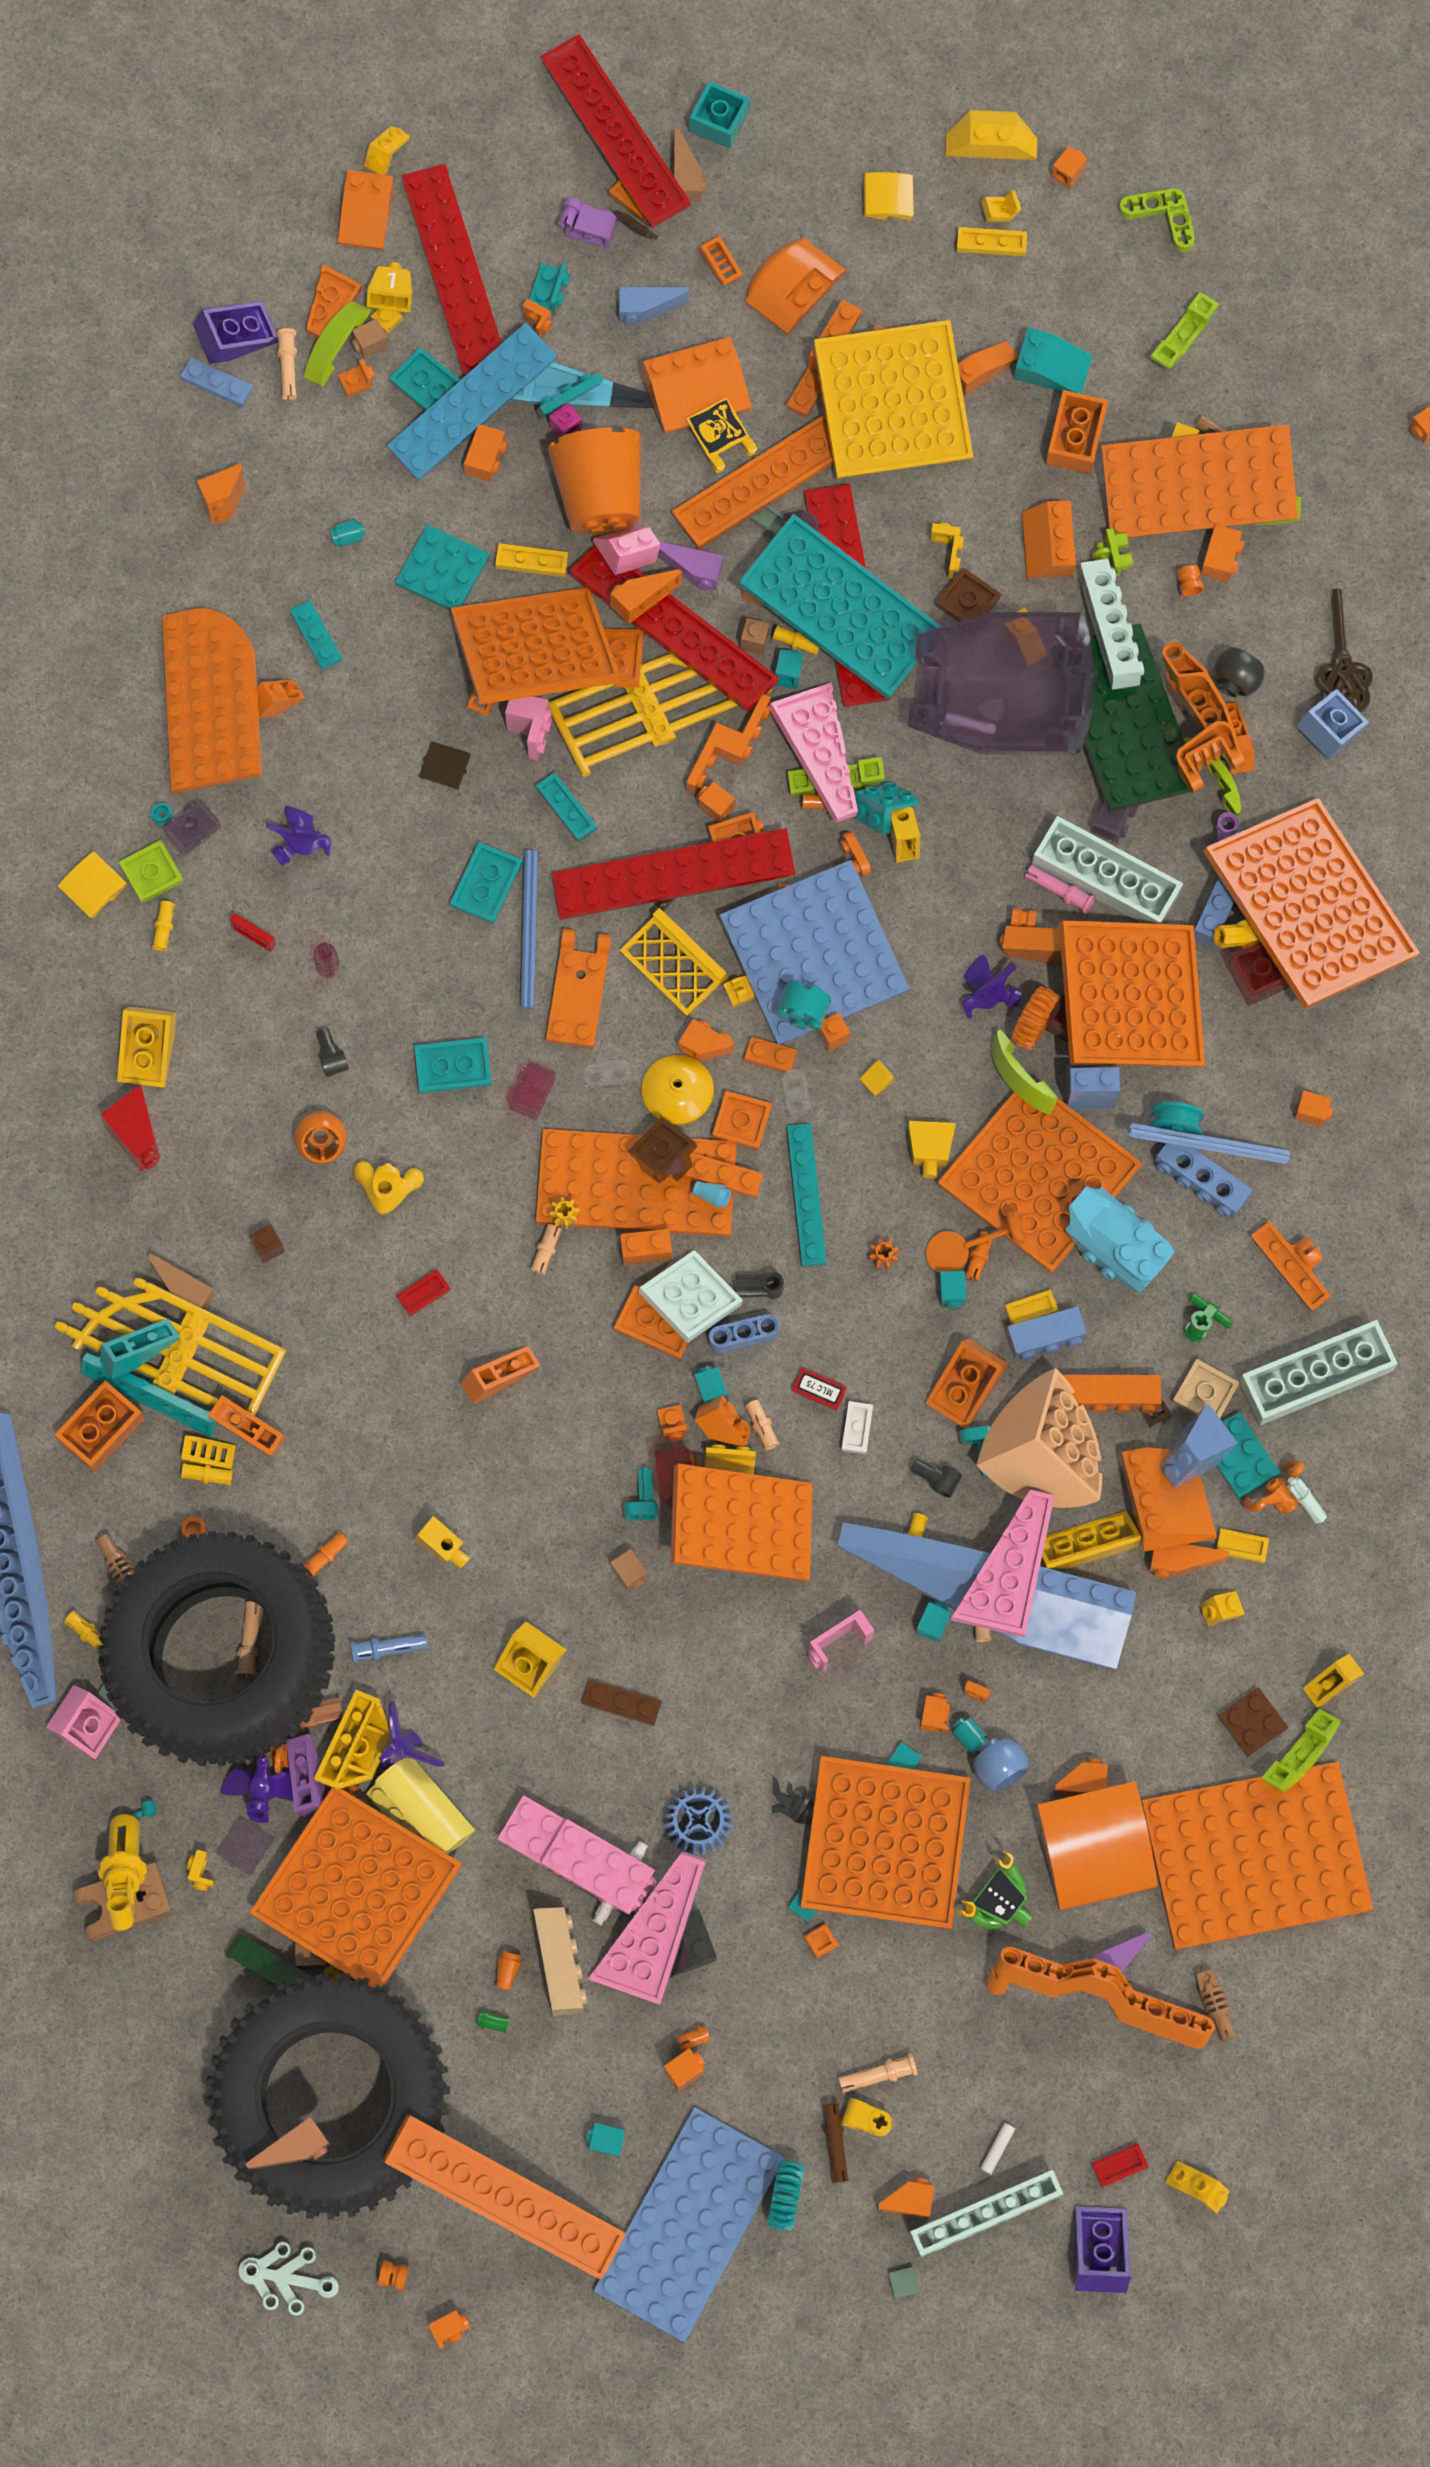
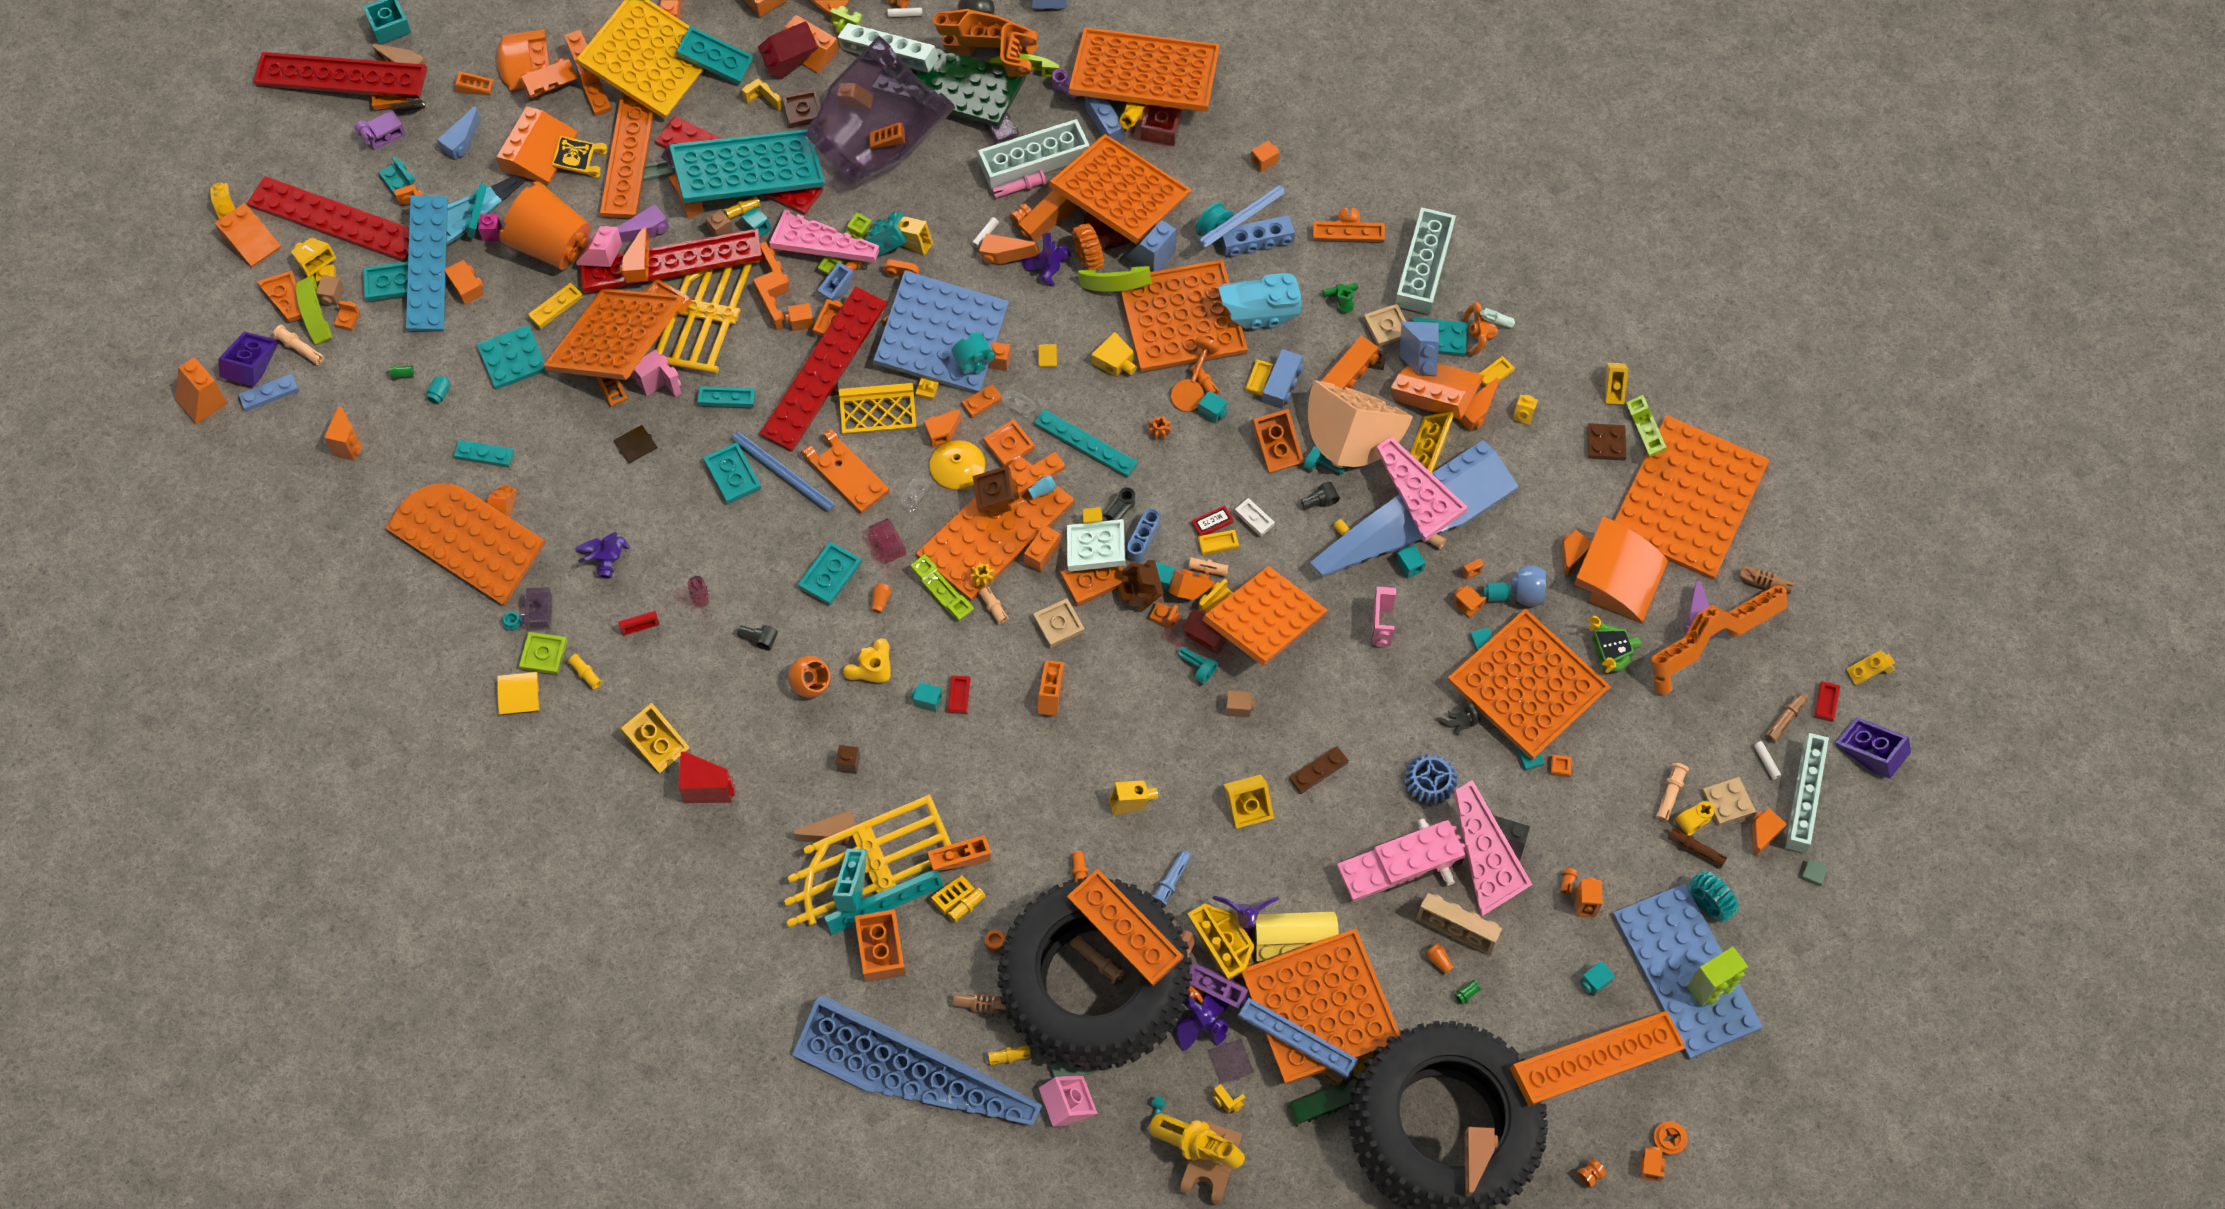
camera: 50 degrees left, 10 degrees down
(160, 321) = (197, 391): none -> orange slope
(264, 1641) = (1125, 927): none -> orange plate
(302, 1891) = (1298, 1038): none -> medium blue tile
(339, 482) = (401, 371): none -> green pin
(393, 1264) = (927, 696): none -> teal brick
(466, 1134) = (880, 597): none -> orange cone
(490, 2316) = (1672, 1129): none -> orange gear
(523, 1184) = (940, 588): none -> lime slope
(578, 1327) = (1058, 623): none -> tan plate
(679, 1379) = (1143, 585): none -> reddish brown panel
(686, 2258) = (1718, 977): none -> lime brick
(722, 1267) = (1092, 515): none -> yellow slope
(782, 326) = (548, 78): none -> orange wedge
(782, 805) = (837, 282): none -> medium blue slope
(800, 1413) = (1218, 542): none -> yellow tile
(917, 2140) = (1729, 801): none -> tan plate
(952, 462) = (714, 55): none -> teal plate
(963, 936) = (1005, 249): none -> orange slope
(973, 900) = (989, 227): none -> white piece
(1007, 726) = (888, 141): none -> orange slope
(1019, 527) = (787, 49): none -> dark red slope
(1064, 2135) = (1790, 712): none -> medium nougat pin
(1179, 602) = (905, 12): none -> white piece

